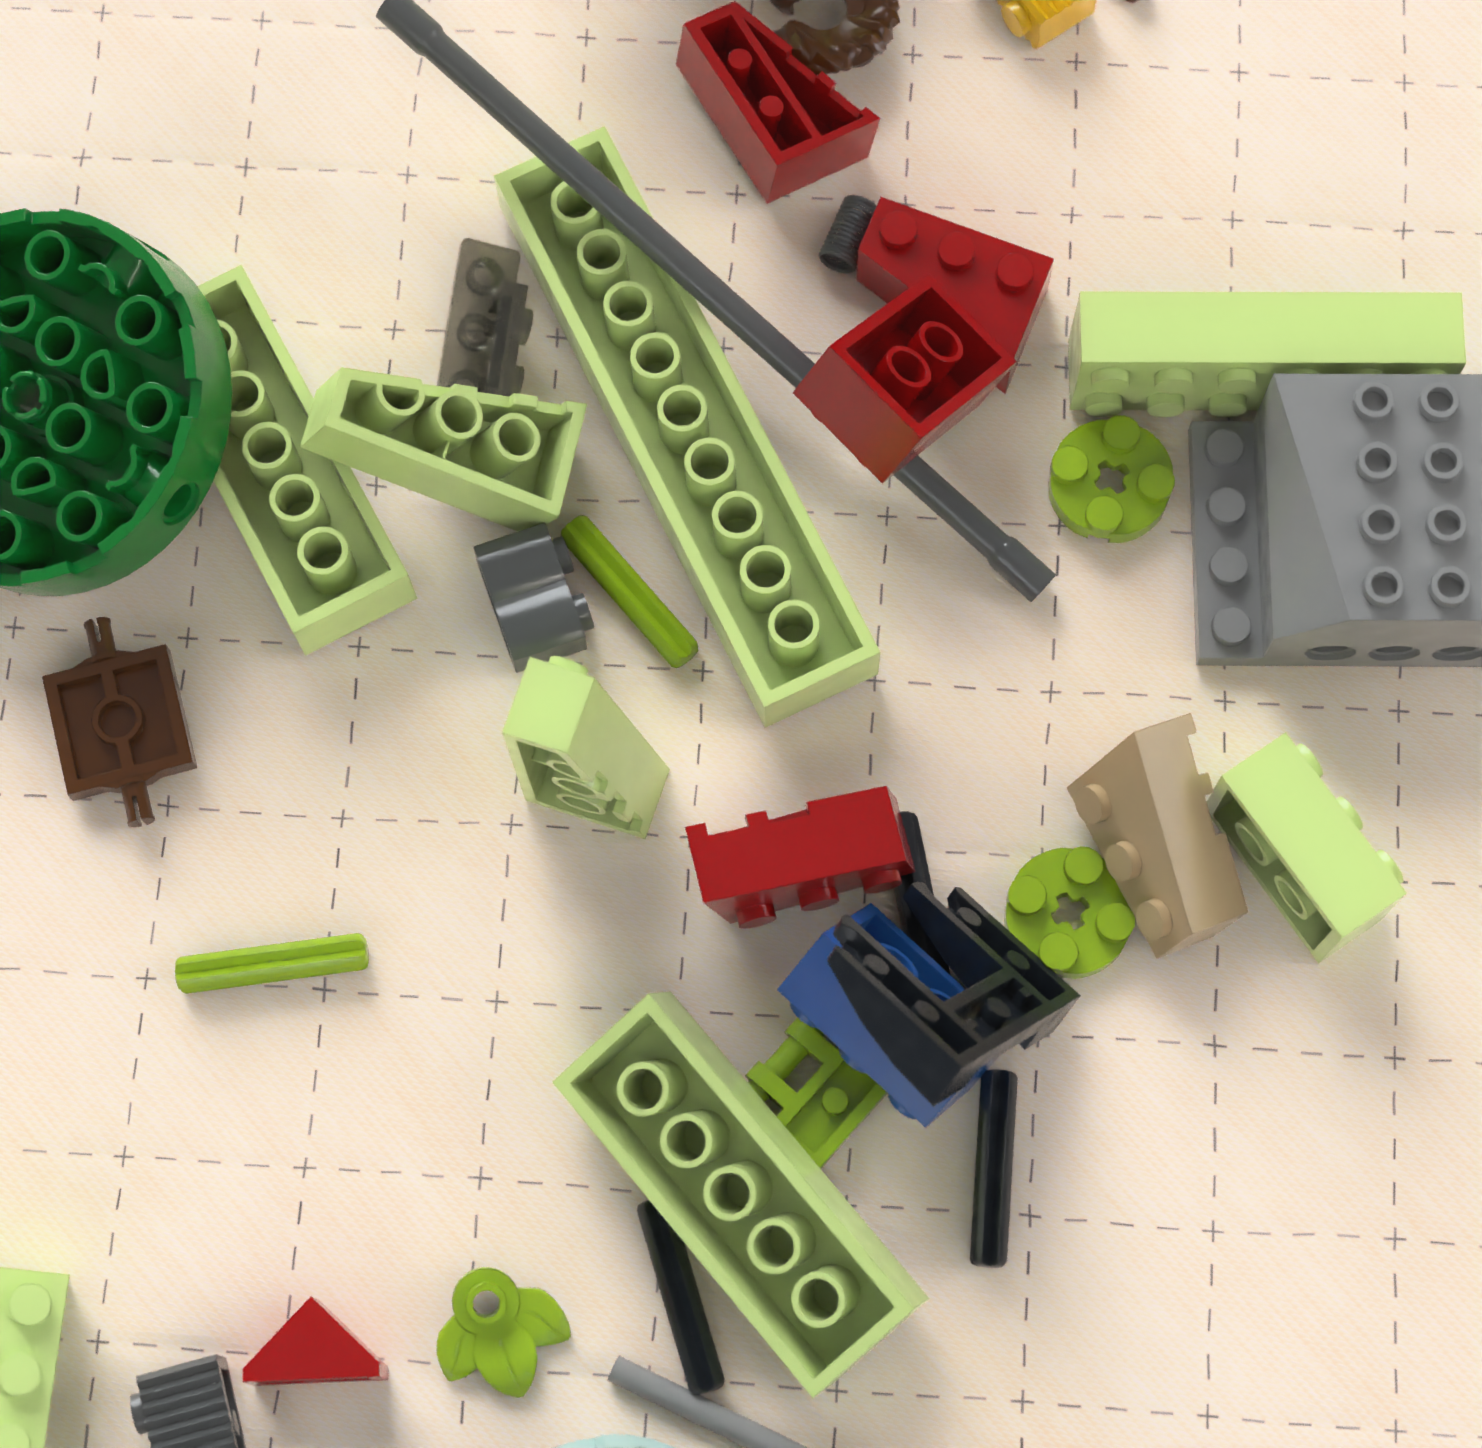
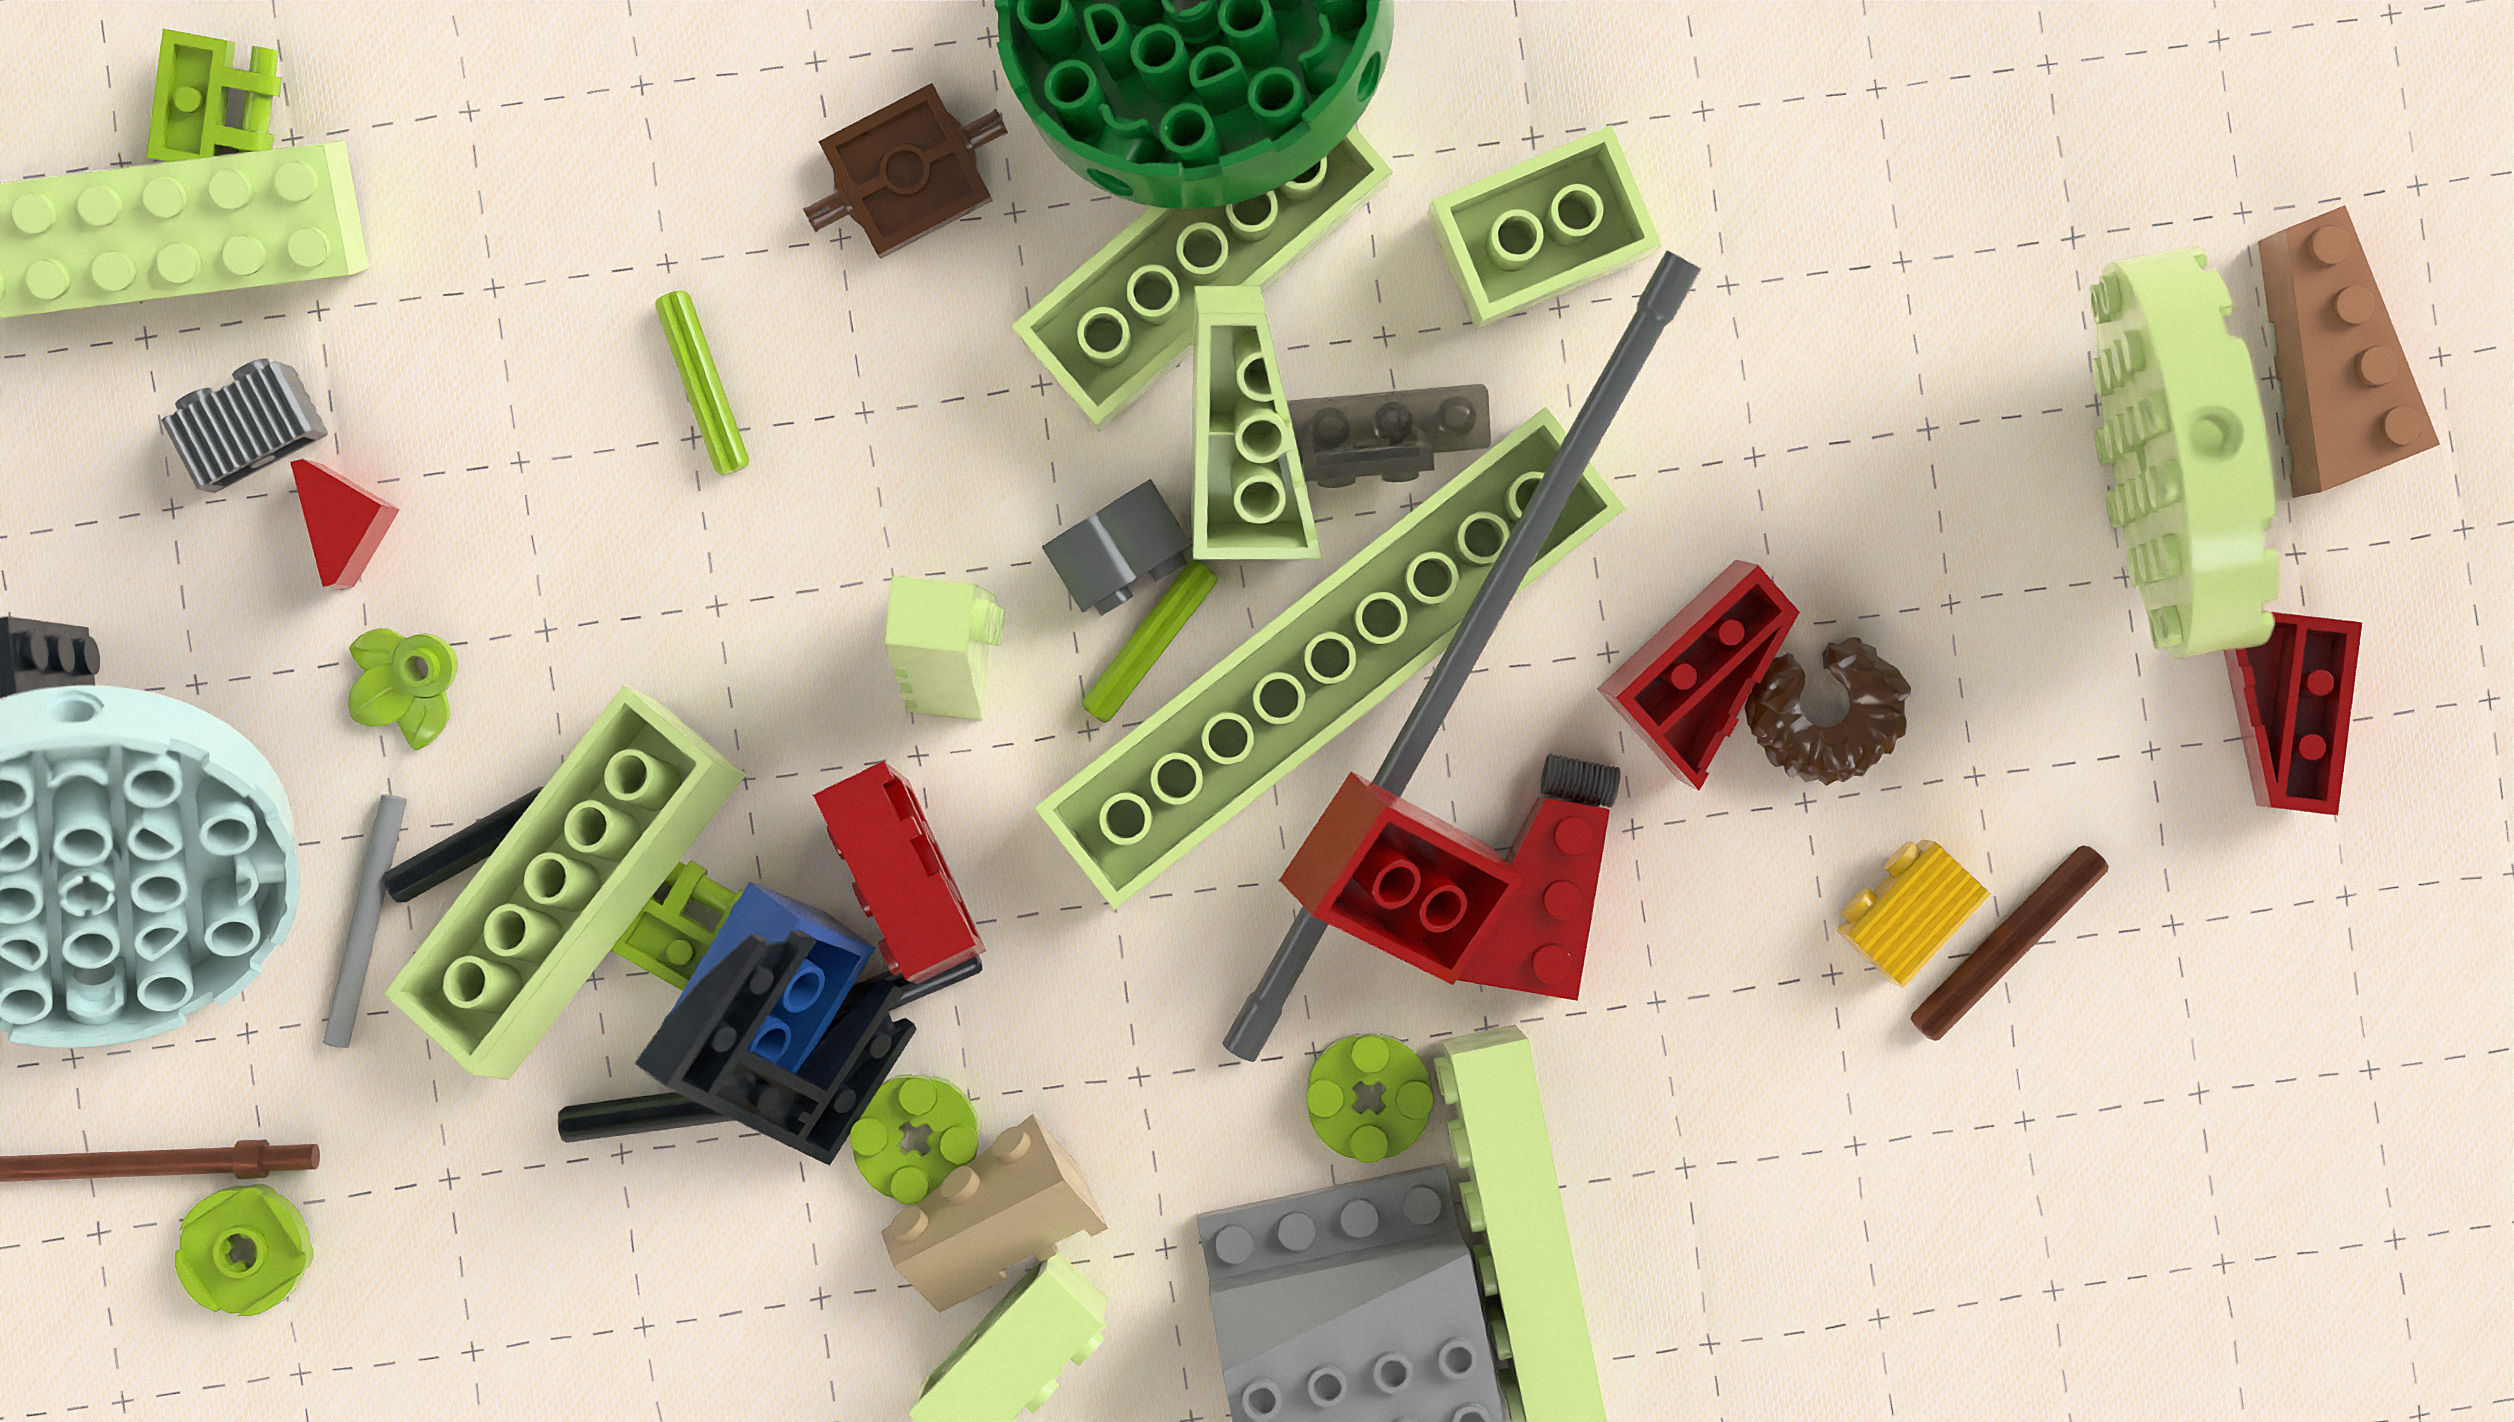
camera: 75 degrees right, 15 degrees up
(330, 158) = (1543, 227): none -> yellowish green brick

